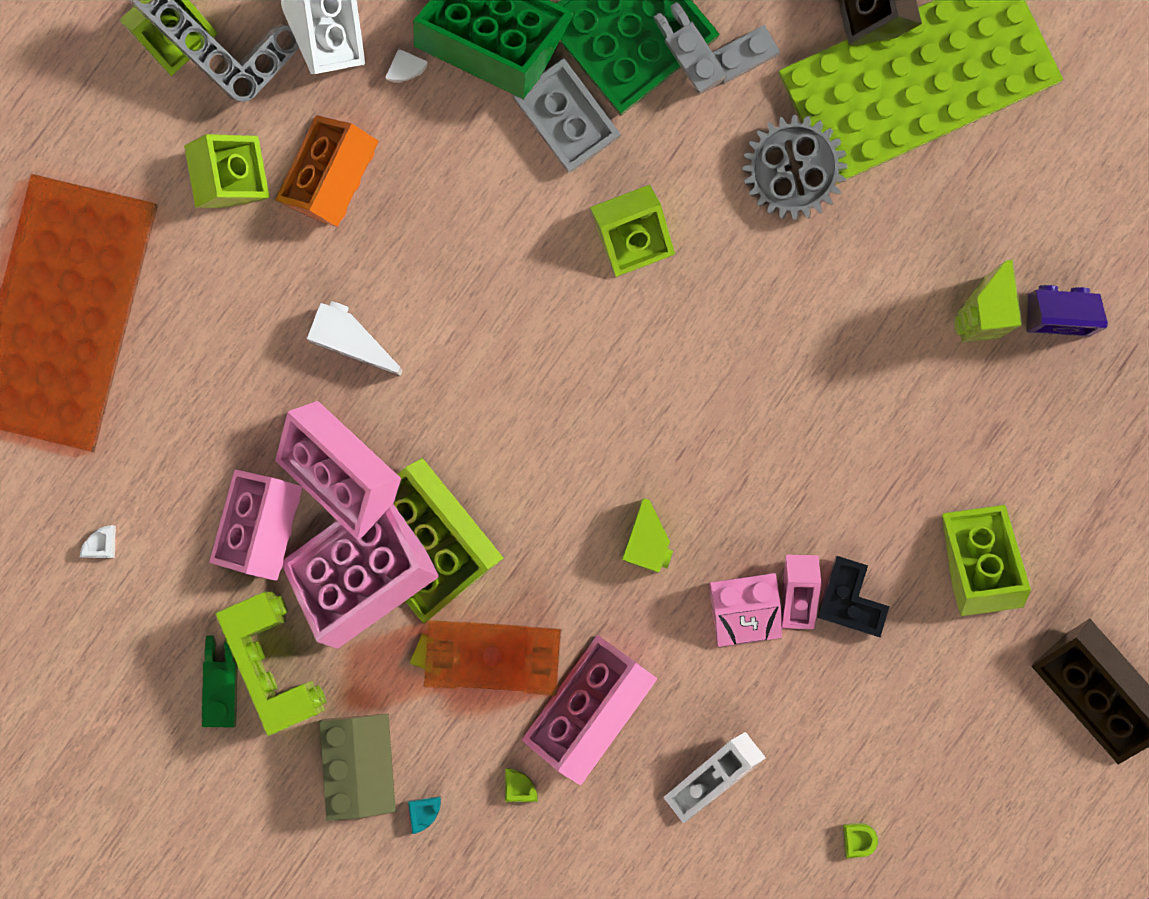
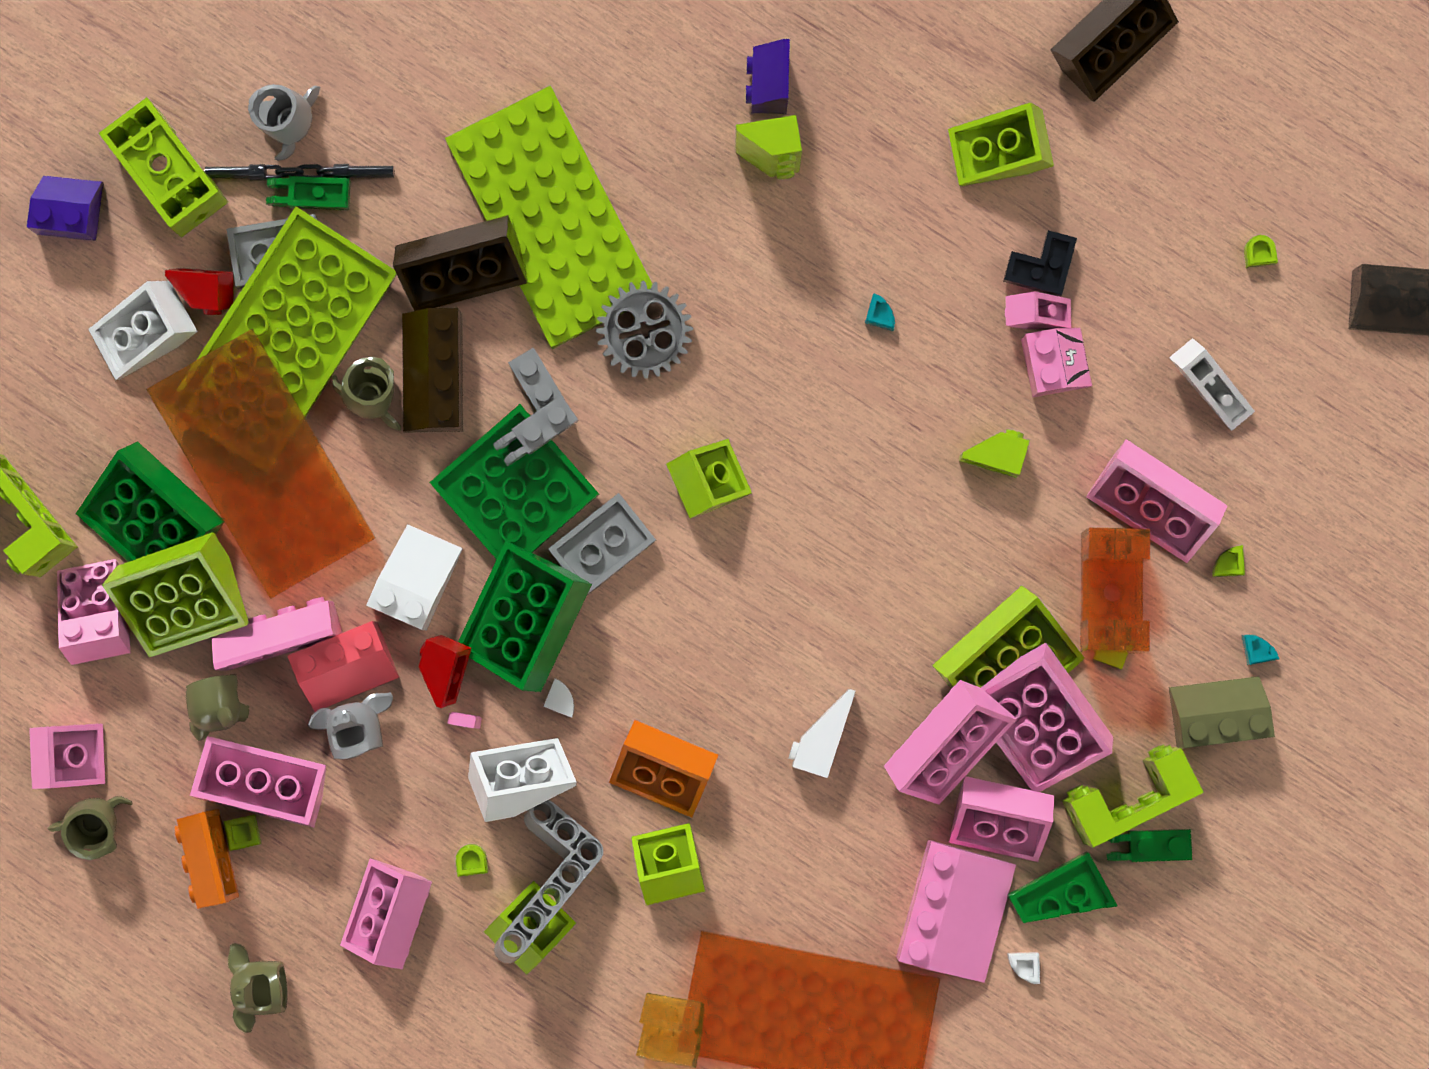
camera: 85 degrees left, 0 degrees up
(53, 166) = (671, 1030): none -> clear yellow slope
(160, 471) = (955, 912): none -> bright pink slope
(175, 585) = (1063, 891): none -> green wing
(804, 422) = (880, 313): none -> teal tile

